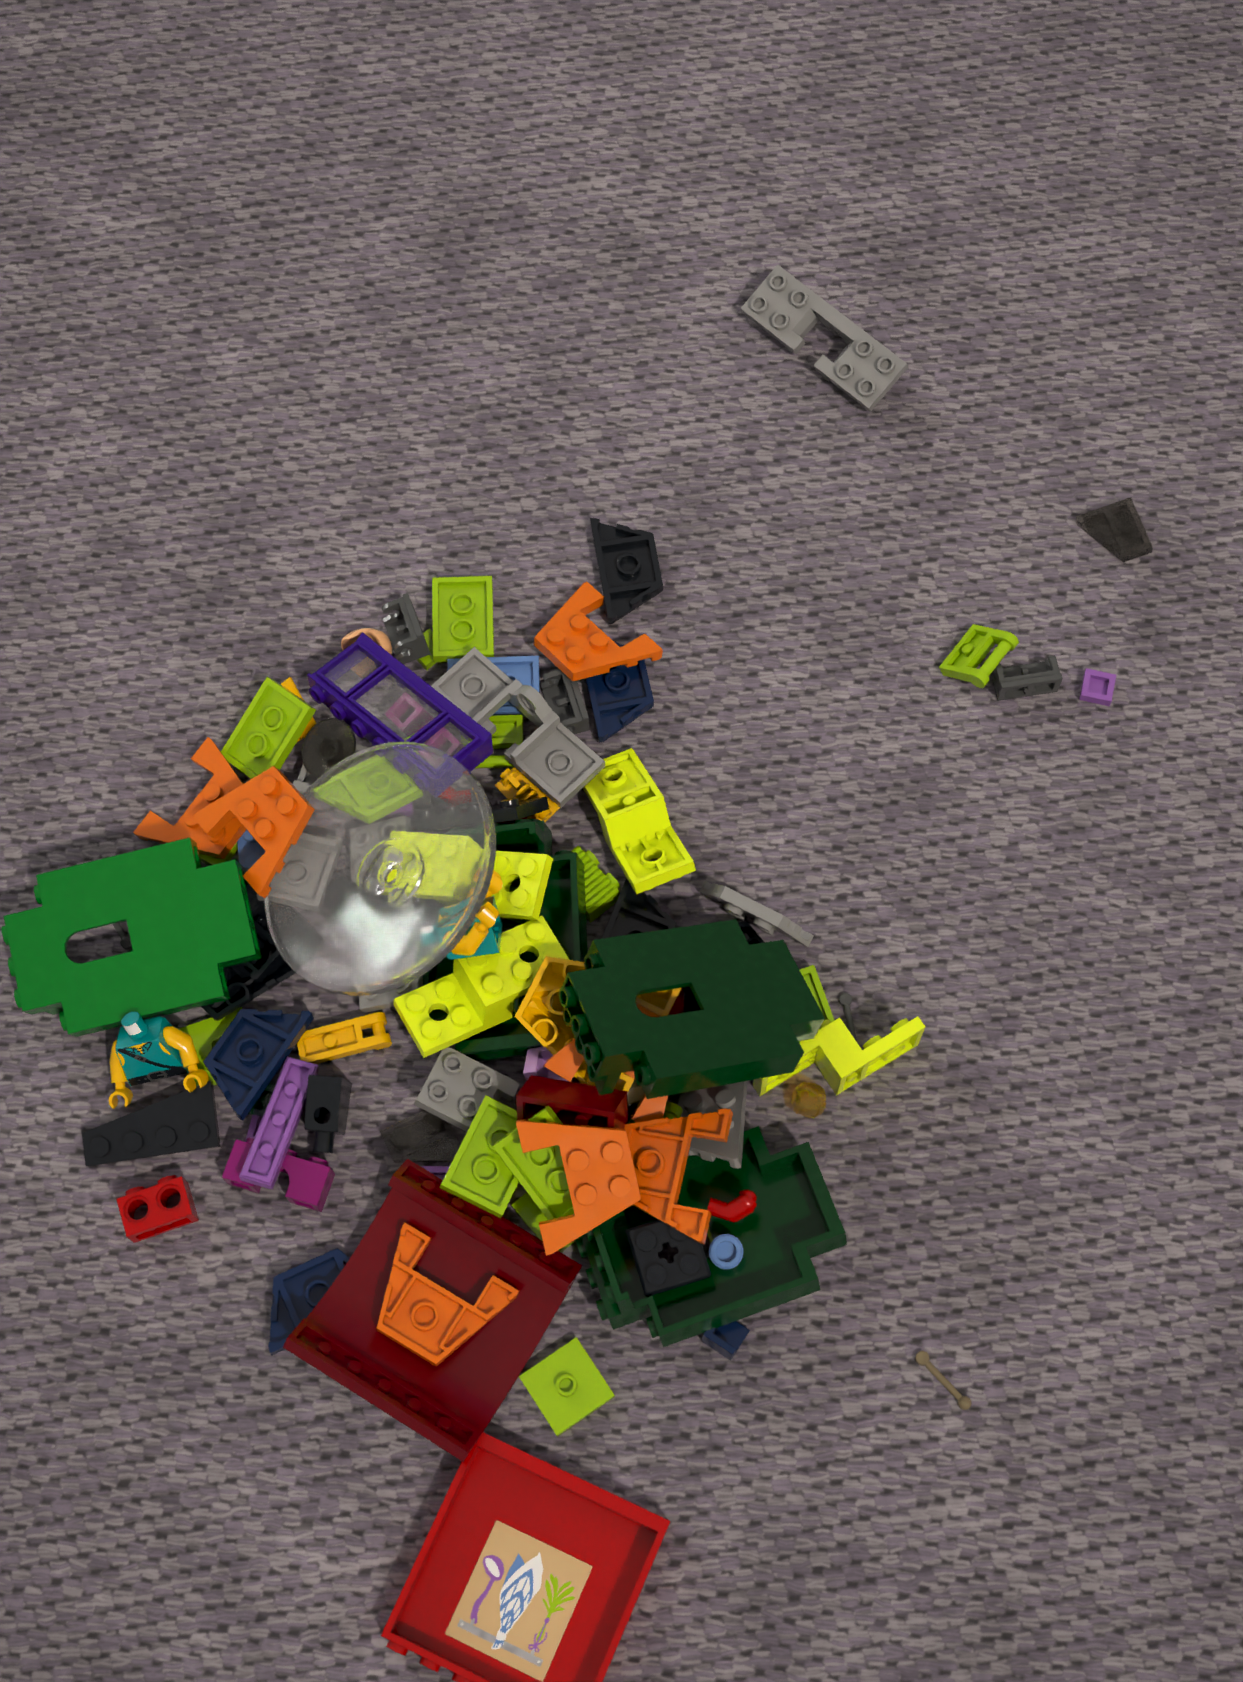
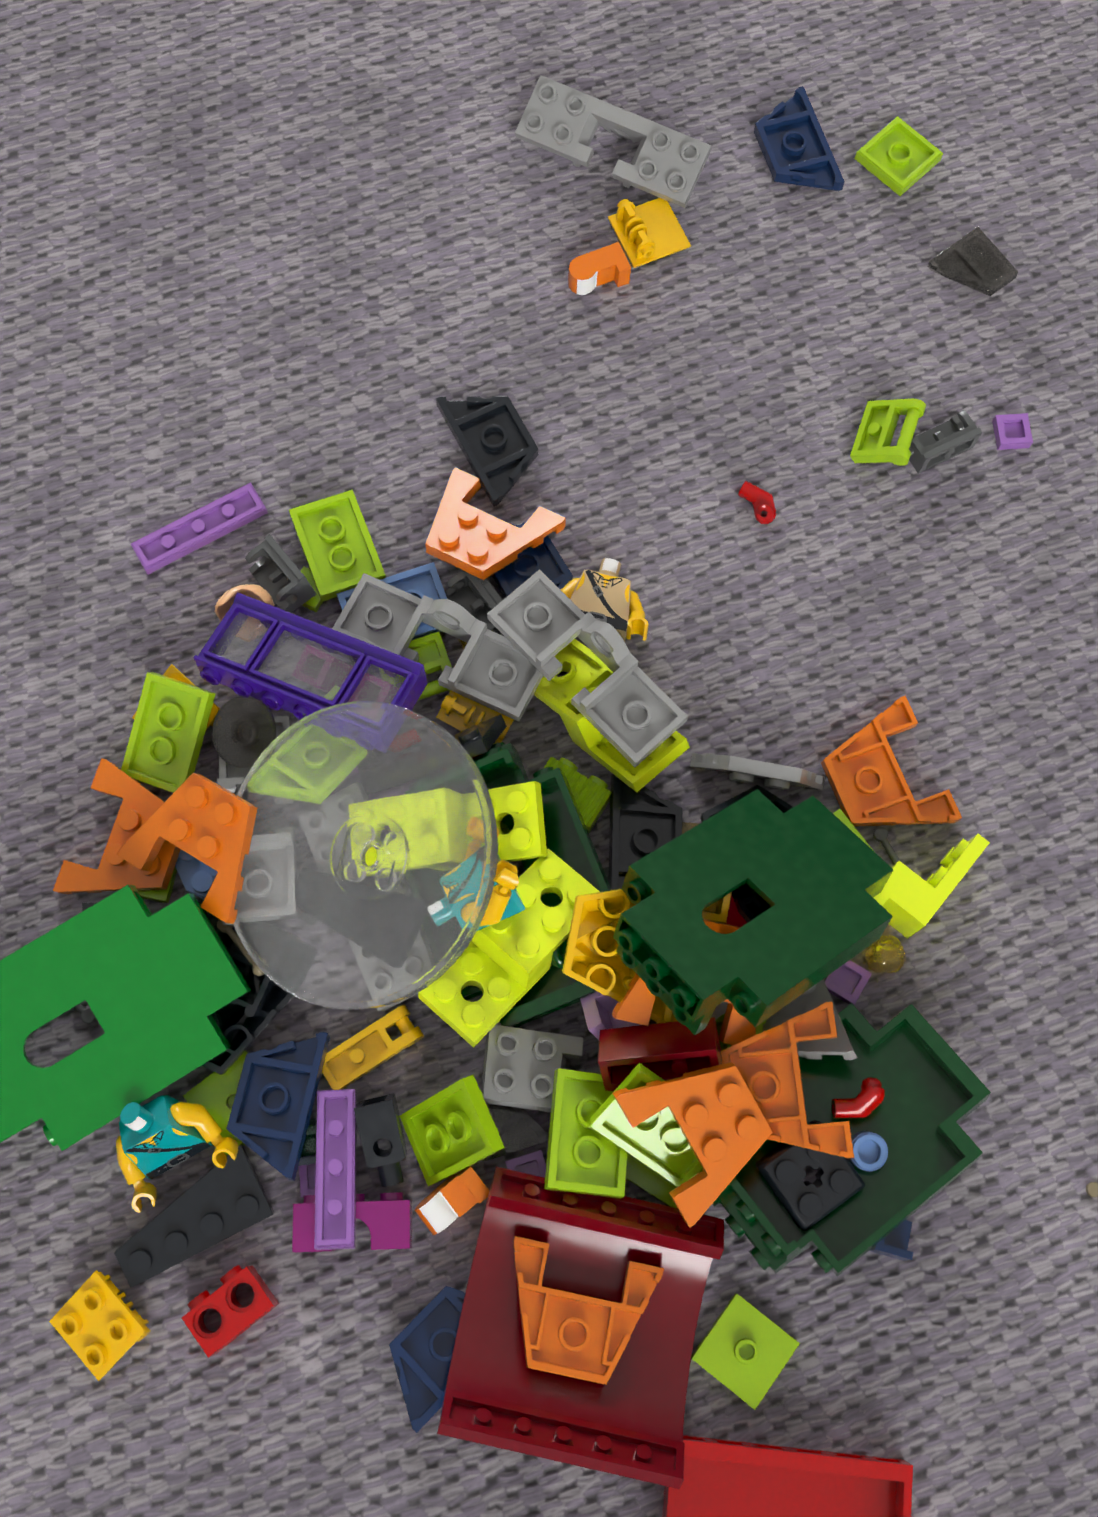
camera: 25 degrees left, 5 degrees up
(51, 1186) = (99, 1324): none -> yellow hinge
(261, 905) = (233, 935): none -> dark tan hinge
(354, 572) = (199, 528): none -> medium lavender tile
(365, 1181) = (451, 1200): none -> orange leg
(383, 1121) = (451, 1130): none -> lime plate
(647, 817) = (623, 707): none -> light grey plate
(666, 731) = (609, 599): none -> torso
(768, 1112) = (848, 982): none -> medium lavender tile
(772, 445) = (599, 268): none -> orange leg
(830, 423) = (648, 230): none -> yellow hinge
(845, 685) = (761, 500): none -> red arm
(851, 950) = (871, 782): none -> orange wing
(993, 382) = (797, 146): none -> dark blue wing
(1083, 415) = (898, 156): none -> lime plate

